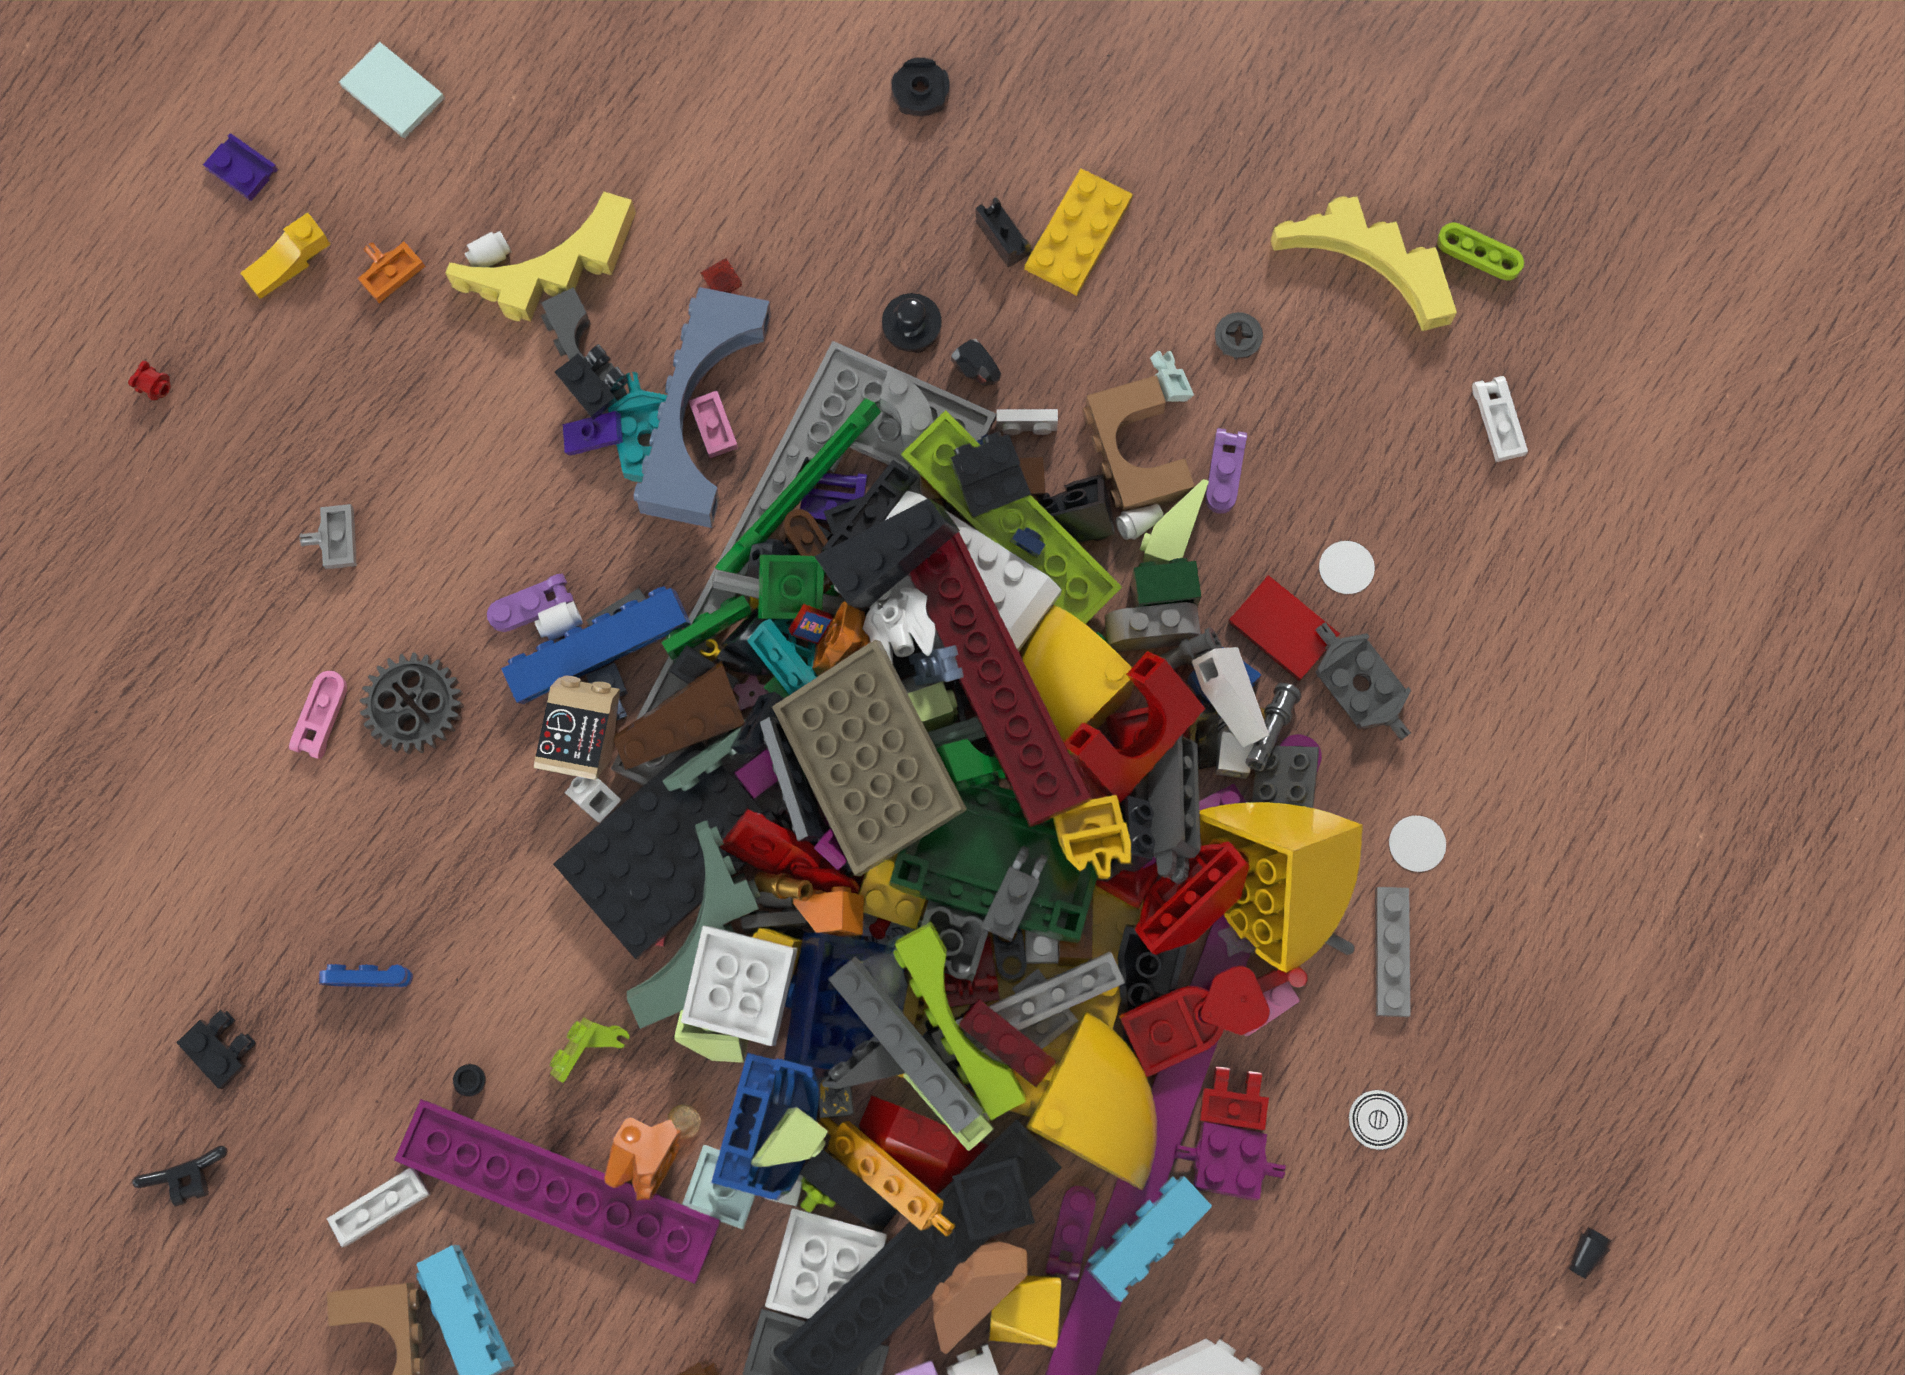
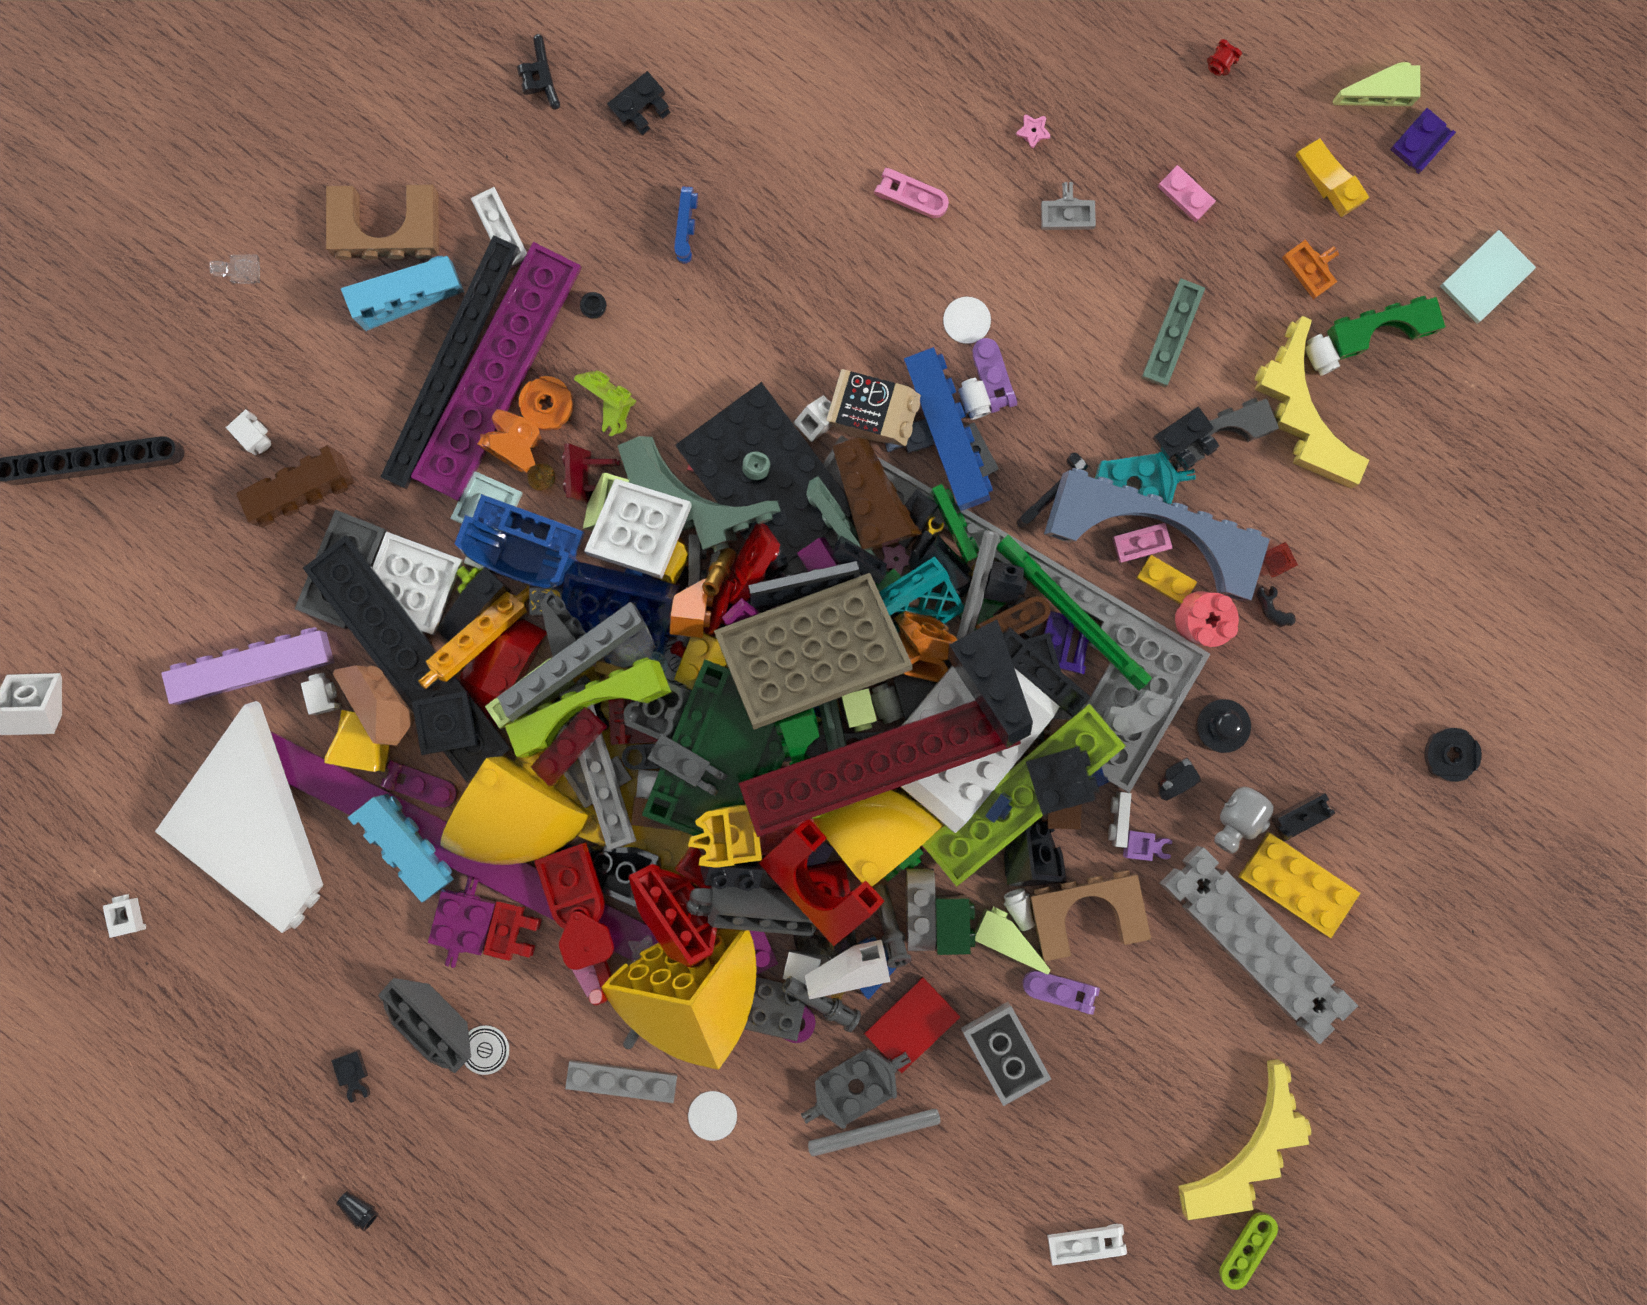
camera: 90 degrees right, 10 degrees up
(180, 201) = (1390, 87): none -> yellowish green slope
(240, 592) = (1033, 137): none -> bright pink plate
(308, 410) = (1186, 193): none -> bright pink plate
(432, 684) = (898, 253): dark grey gear -> none
(444, 159) = (1416, 320): none -> green arch
(466, 640) = (967, 320): none -> white sticker
(470, 410) = (1173, 332): none -> sand green plate
(549, 1249) = (450, 361): none -> black plate
(583, 1108) = (539, 389): none -> orange plate
(592, 434) = (1141, 431): dark purple plate -> none
(626, 504) = (1073, 461): none -> black hinge
(654, 856) = (756, 465): none -> sand green tile
(662, 1075) = (577, 479): none -> dark red plate
(753, 396) = (1166, 579): none -> yellow plate
(784, 277) = (1276, 616): none -> black piece
(787, 584) = (978, 597): green plate -> none
(792, 1140) = (506, 560): yellowish green slope -> none
(793, 346) = (1221, 616): none -> coral brick
(810, 624) = (944, 612): tile -> none
(901, 621) = (929, 688): white piece -> none
(936, 667) = (892, 716): sand blue plate -> none
(1011, 291) = (1243, 817): none -> light grey piece
(1053, 392) = (1143, 845): none -> medium lavender plate
(1147, 267) = (1258, 944): none -> light grey brick
(1171, 380) = (1147, 952): light aqua plate -> none
(1250, 328) = (1192, 1029): dark grey gear -> none
(1302, 520) = (1005, 1053): none -> light grey brick
(1346, 567) = (962, 1087): white sticker -> none
(1356, 1187) = (427, 1022): none -> dark grey wedge
(1410, 659) = (874, 1132): none -> light grey axle
(1425, 1281) = (350, 1071): none -> black plate

